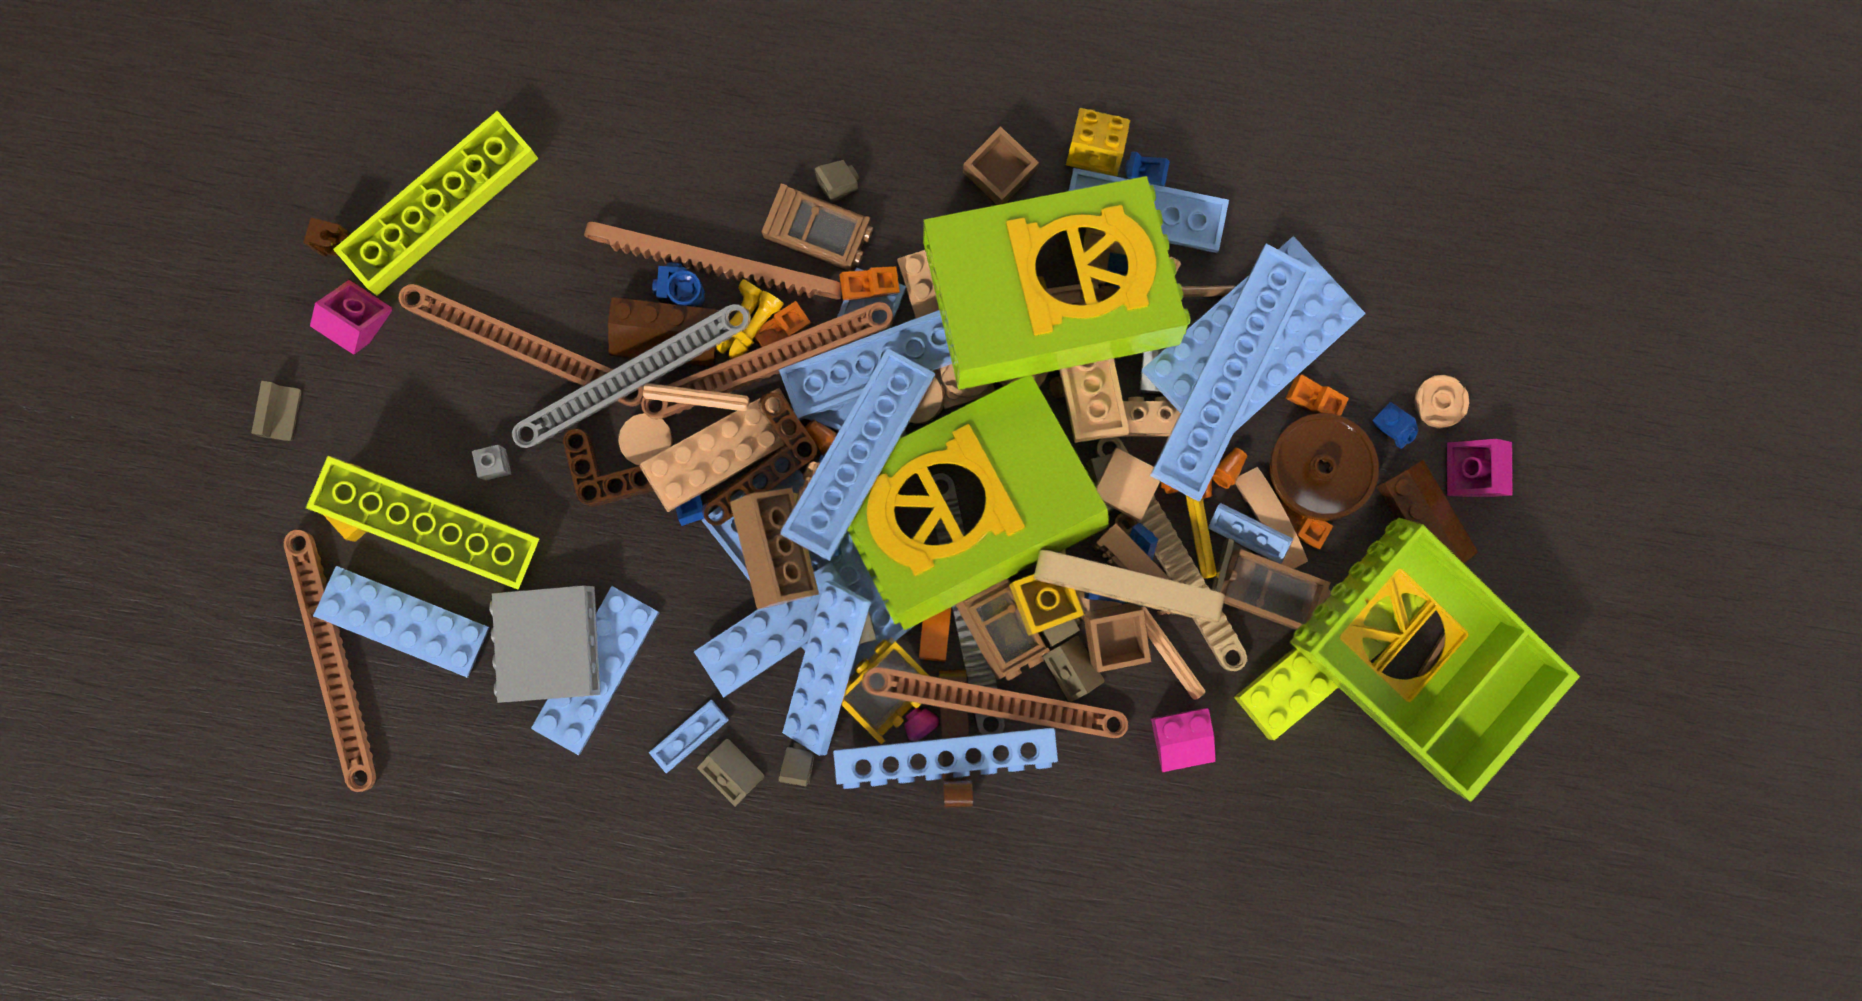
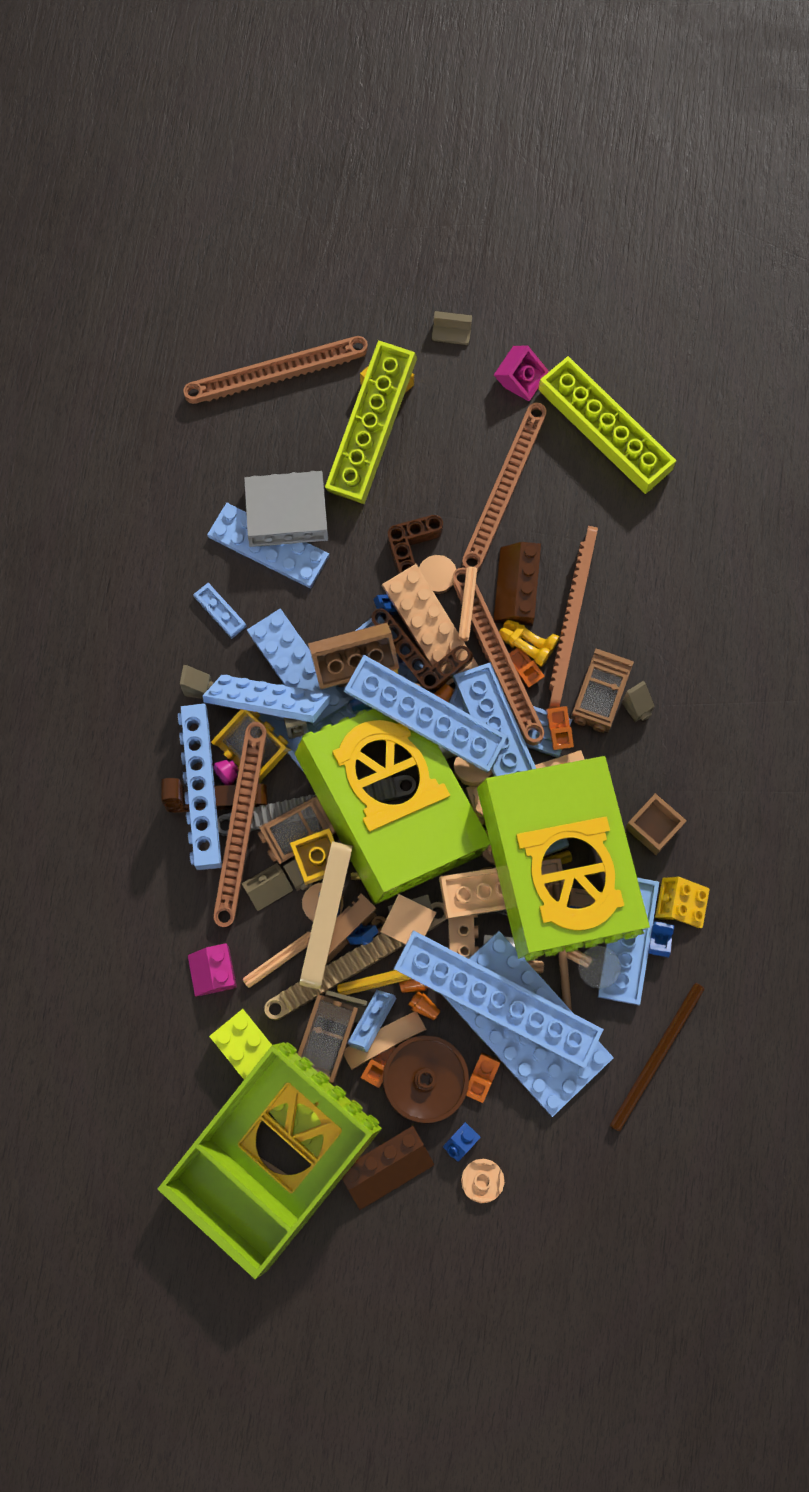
camera: 90 degrees right, 10 degrees down
(324, 236) = (577, 349): reddish brown hinge -> none
(401, 621) = (302, 414): light blue plate -> none
(491, 462) = (417, 468): light grey brick -> none
(631, 376) = (483, 559): light grey gear -> none
(659, 284) = (556, 582): blue bracket -> none
(685, 289) = (548, 597): blue wheel -> none
(730, 772) = (193, 639): dark tan panel -> none
(935, 637) = (292, 782): orange slope -> none
(1117, 637) = (289, 914): medium nougat piece -> none
(1187, 245) = (599, 967): none -> clear tile
(1290, 183) = (657, 1057): none -> reddish brown axle
(1479, 468) = (427, 1210): dark pink slope -> none

